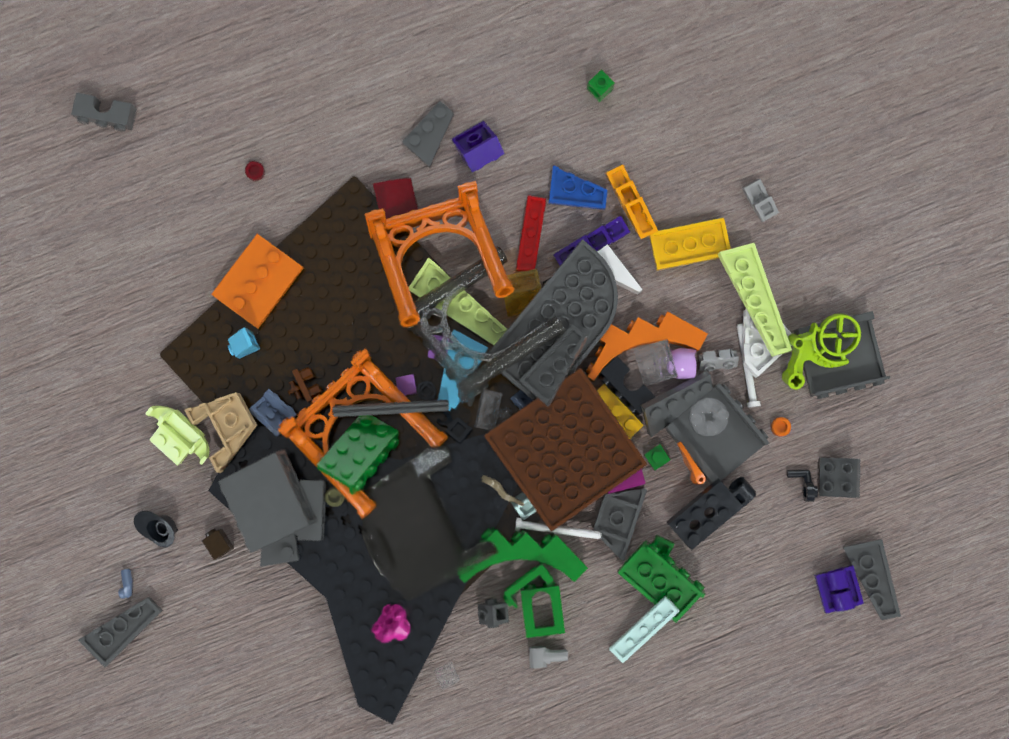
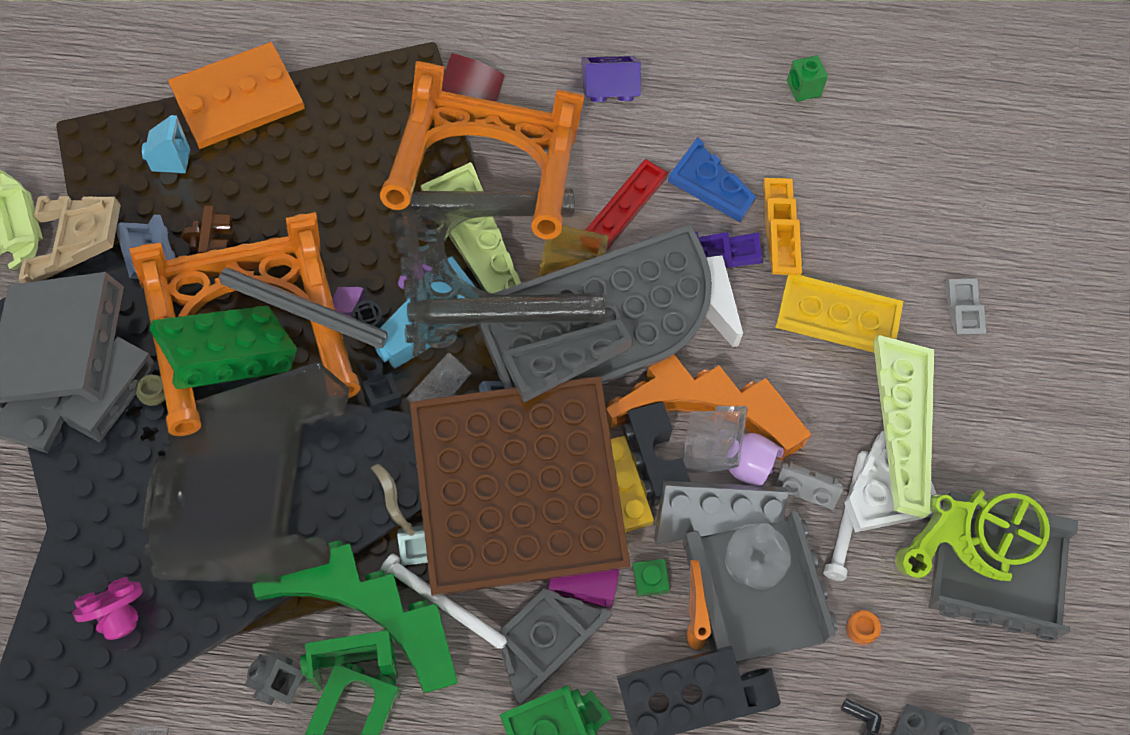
camera: 20 degrees right, 20 degrees down
(428, 134) = (553, 39): dark grey wing -> none

